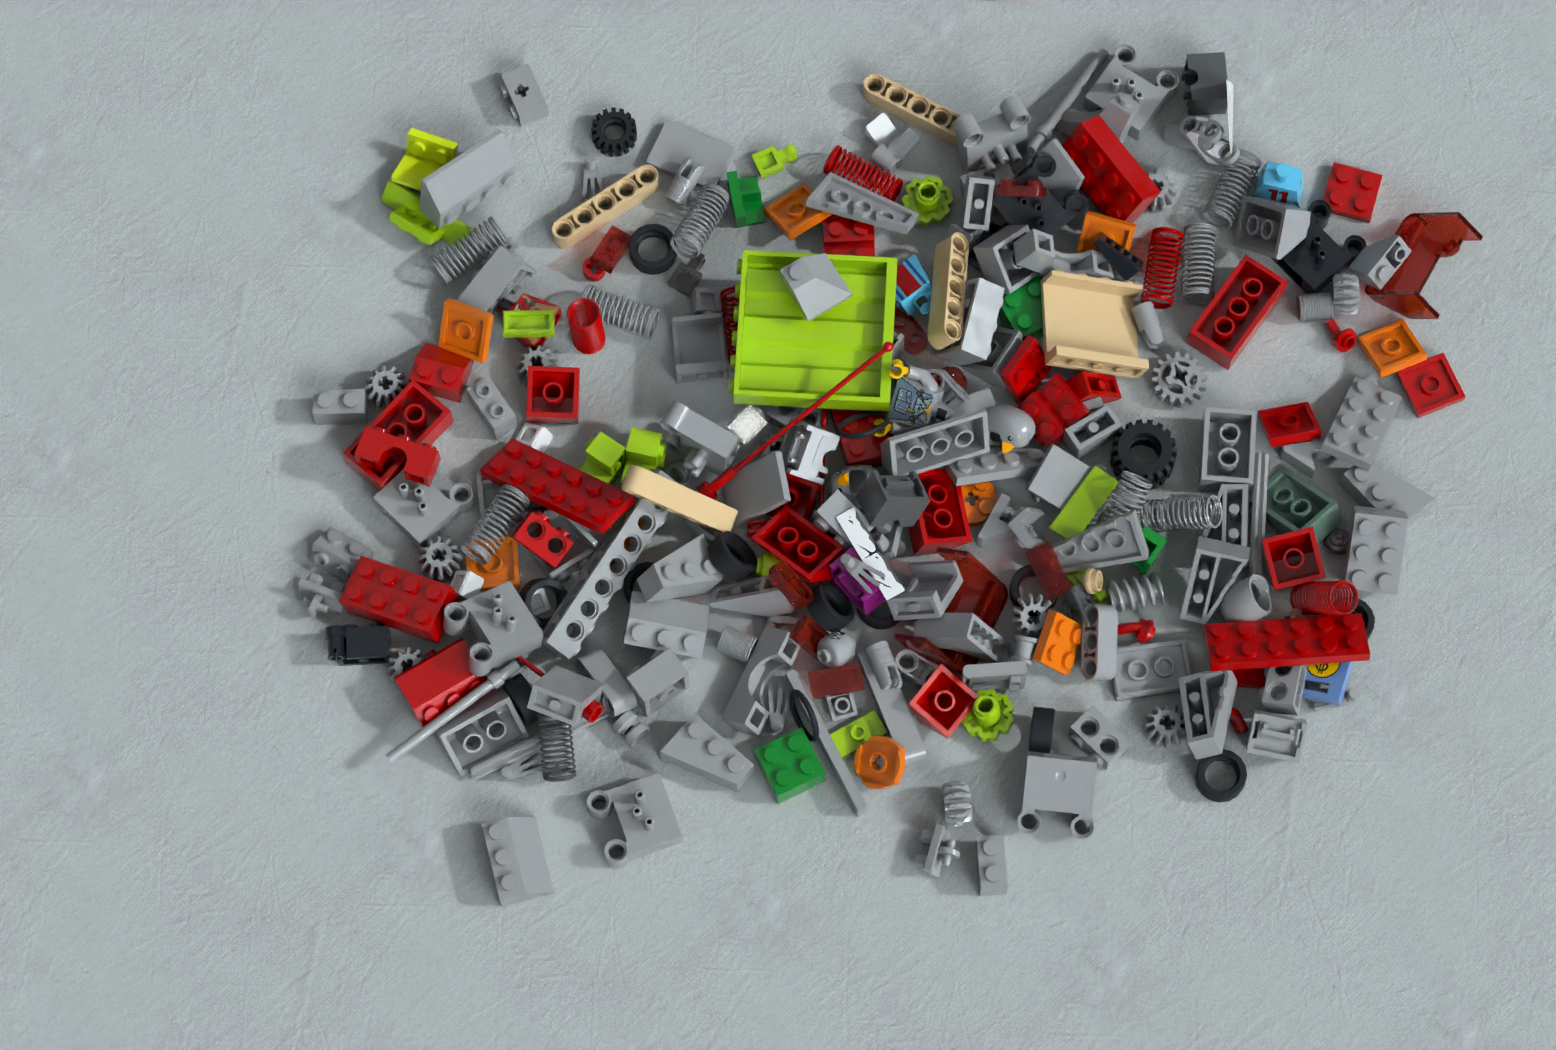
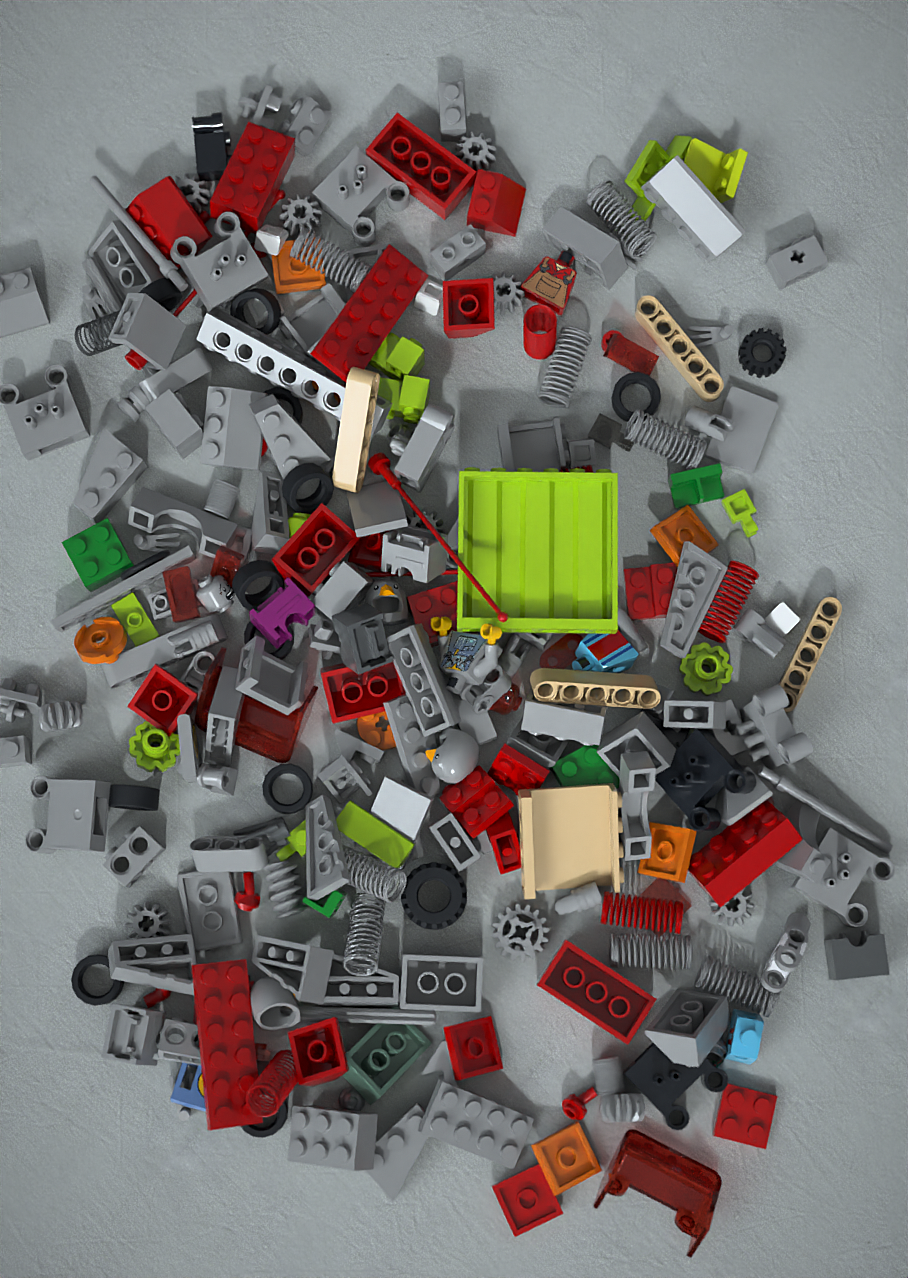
camera: 85 degrees right, 10 degrees up
(378, 446) = (385, 180): red arch -> none
(465, 330) = (533, 220): orange plate -> none
(528, 323) = (542, 278): lime tile -> none
(539, 544) = (310, 300): red brick -> none
(746, 424) = (441, 491): clear brick -> none
(755, 526) = (342, 513): red bush -> none
(790, 584) = (270, 540): clear red plate -> none
(814, 284) = (580, 545): light grey slope -> none
(856, 567) = (281, 602): light grey piece -> none
(864, 433) = (425, 610): black tyre -> none
(870, 552) = (300, 616): white sticker -> none
(1022, 616) = (252, 785): light grey gear -> none
(1031, 189) = (705, 764): clear red plate -> none
(1048, 570) = (300, 800): clear red plate -> none
(1058, 643) = (224, 811): orange plate -> none
(1092, 580) = (292, 845): tan plate -> none
(1120, 258) = (648, 864): black slope -> none
(1230, 111) = (830, 979): white sticker -> none
(1380, 261) = (658, 1145): light grey slope -> none

